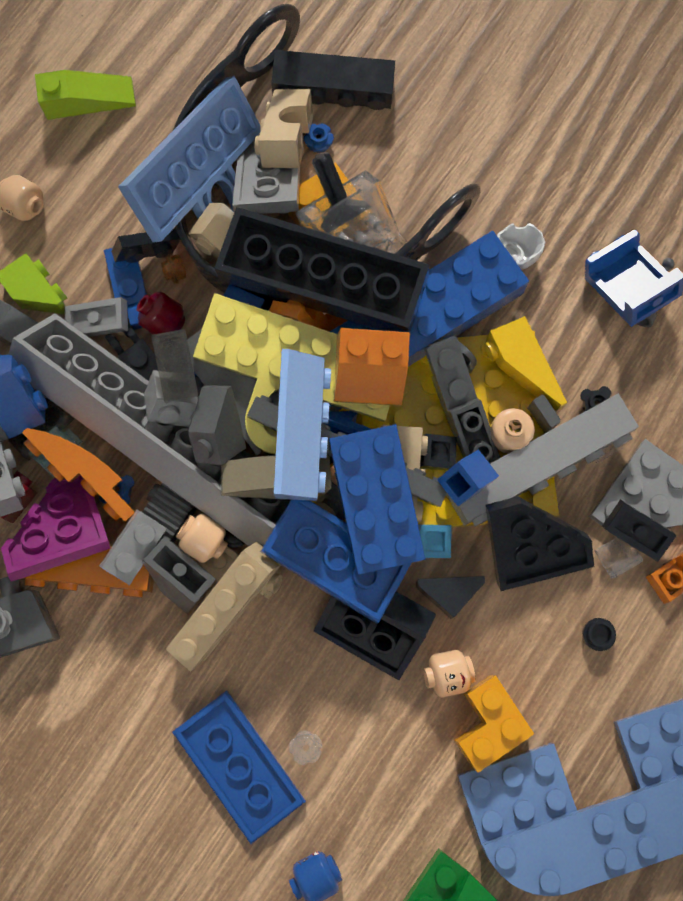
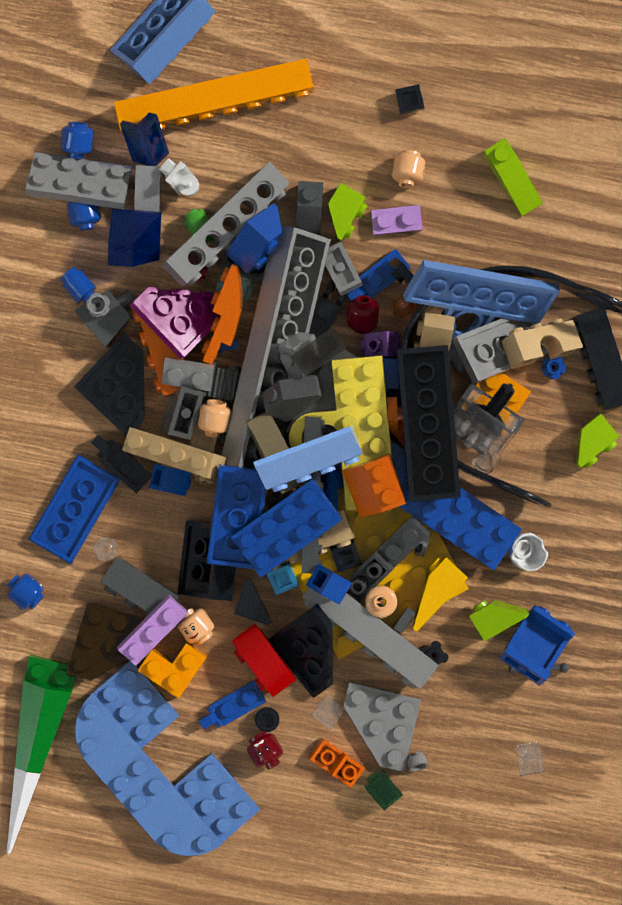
camera: 70 degrees right, 10 degrees up
(73, 237) = (396, 220): none -> lavender plate
(109, 644) = (117, 385): none -> black plate
(200, 299) = (381, 343): none -> medium lavender brick
(208, 680) = (122, 463): none -> black hinge
(254, 627) = (170, 480): none -> blue brick
(375, 726) = (135, 586): none -> dark grey brick
(419, 125) = (593, 439): none -> lime slope
(423, 795) = (98, 640): none -> dark brown plate
(433, 731) = (152, 630): none -> lavender plate
(526, 606) = (263, 660): none -> red brick
(566, 669) = (233, 705): none -> blue hinge
(582, 309) = (496, 617): none -> lime slope
(639, 530) = (349, 718): black plate -> none
(639, 652) = (265, 750): none -> dark red head

